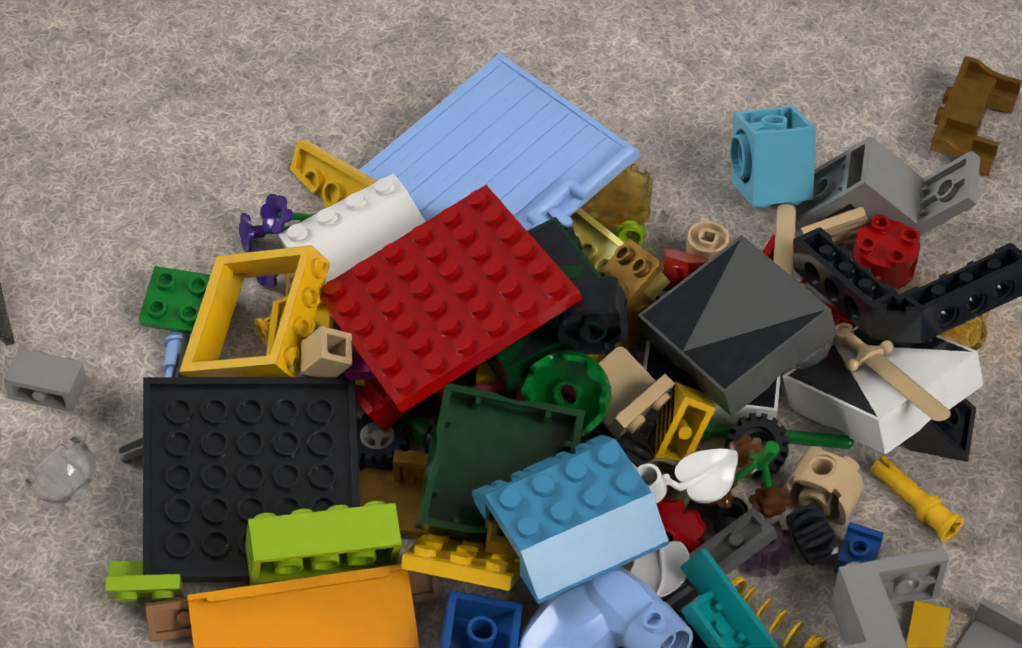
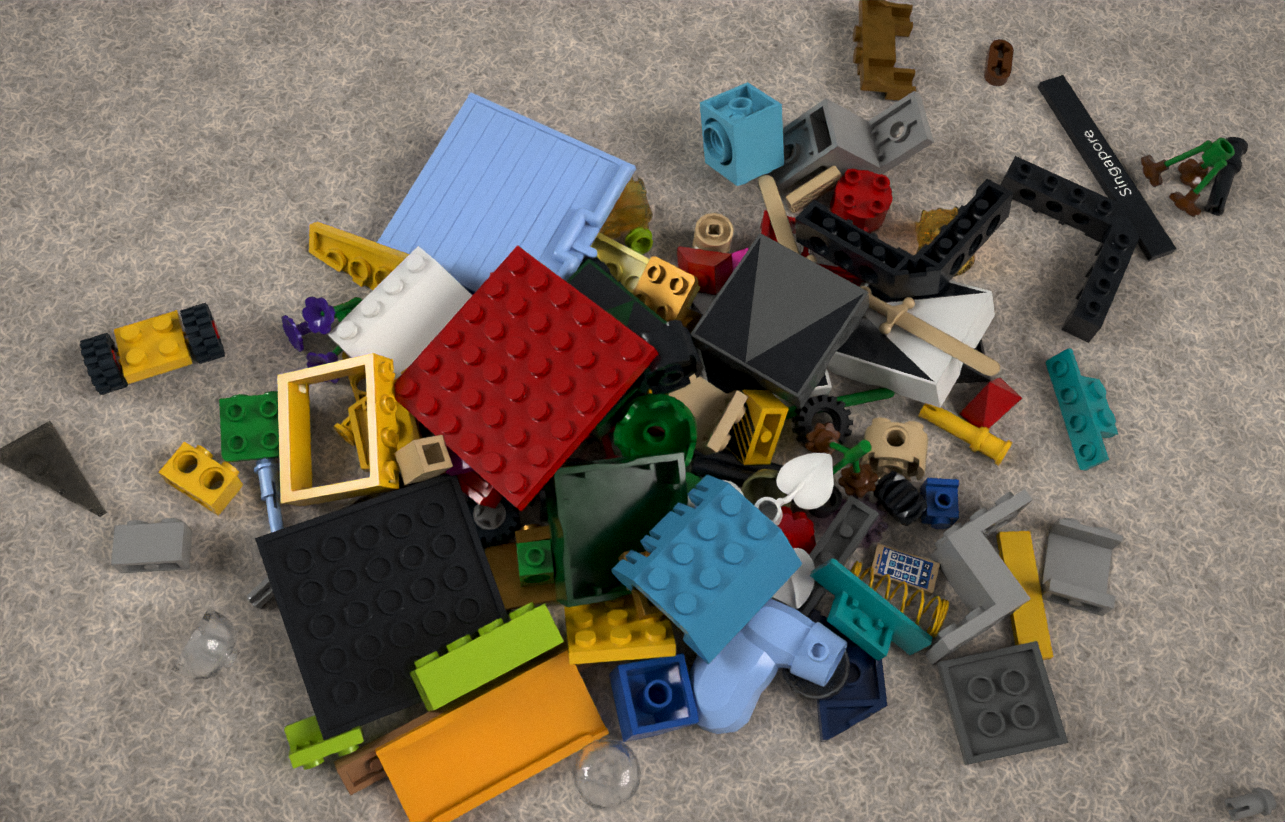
camera: 25 degrees left, 15 degrees up
(109, 210) = (151, 348): none -> plate
(113, 334) = (199, 481): none -> yellow brick
(404, 485) = (535, 563): none -> green brick
(799, 606) = (904, 567): none -> tile
(958, 479) = (990, 404): none -> red slope

